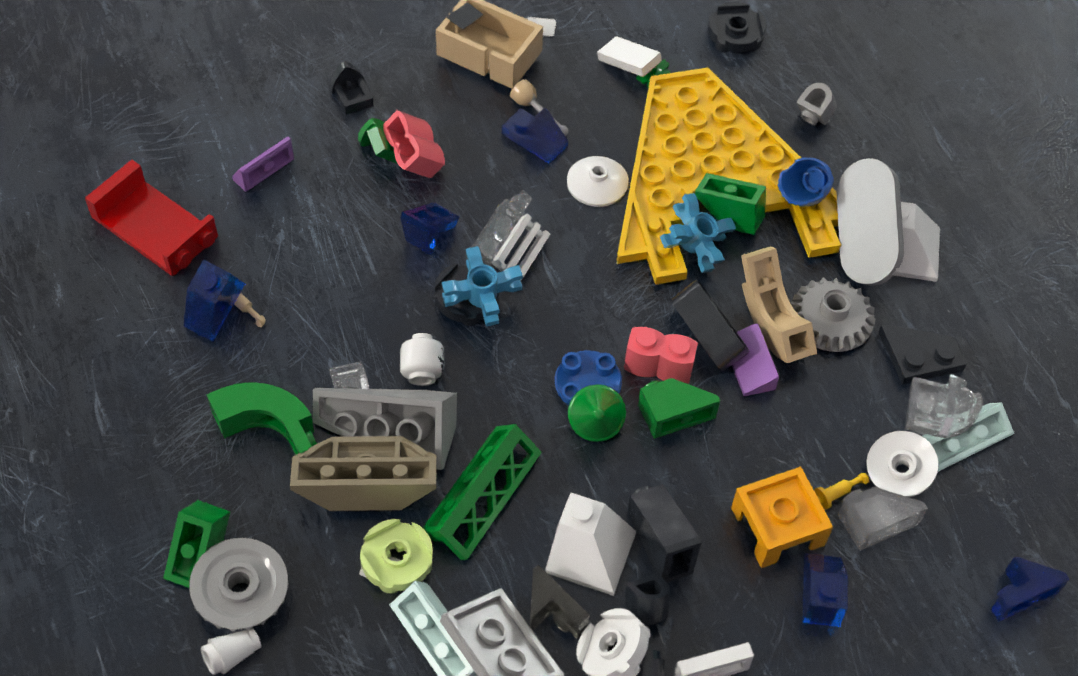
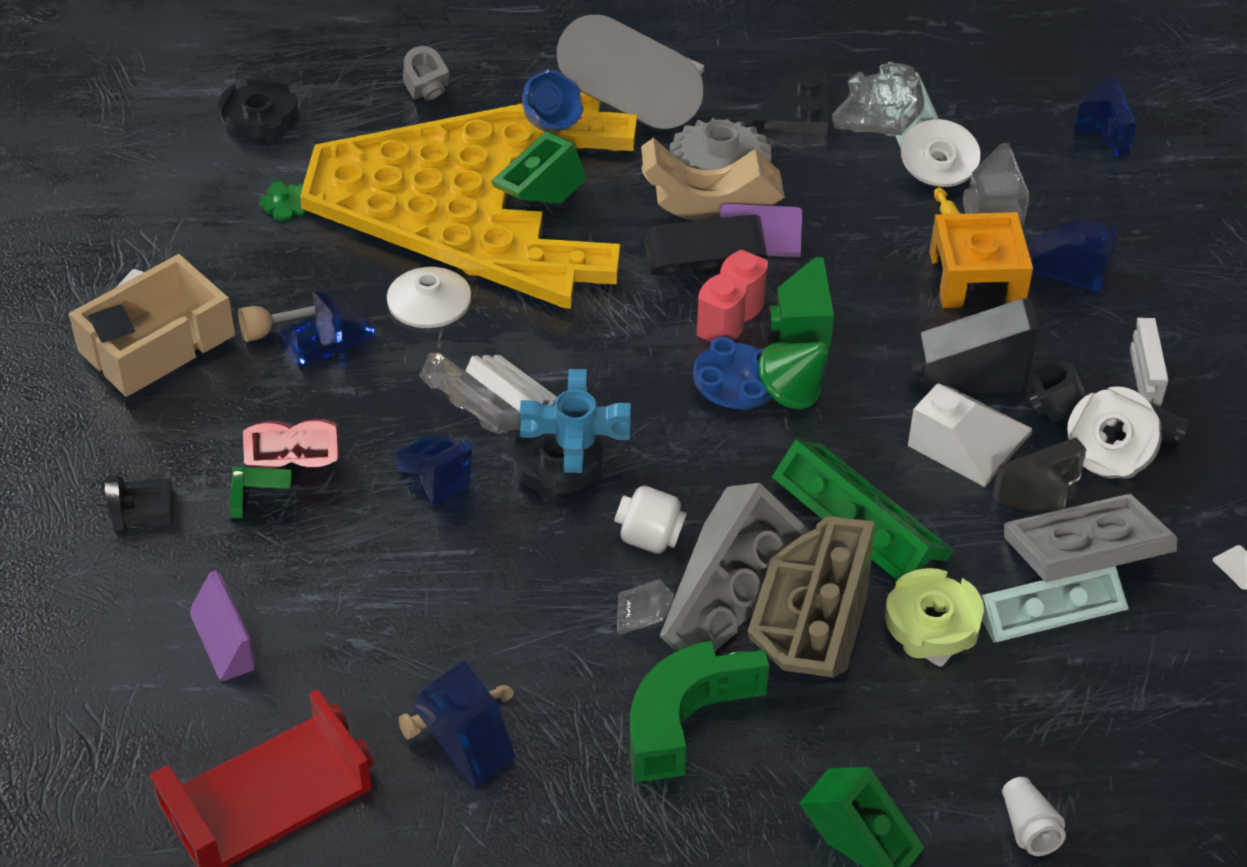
camera: 70 degrees left, 10 degrees down
(234, 563) = (947, 776): light grey gear -> none
(629, 56) = (252, 208): white tile -> none
(698, 233) = (572, 215): dark azure pin -> none

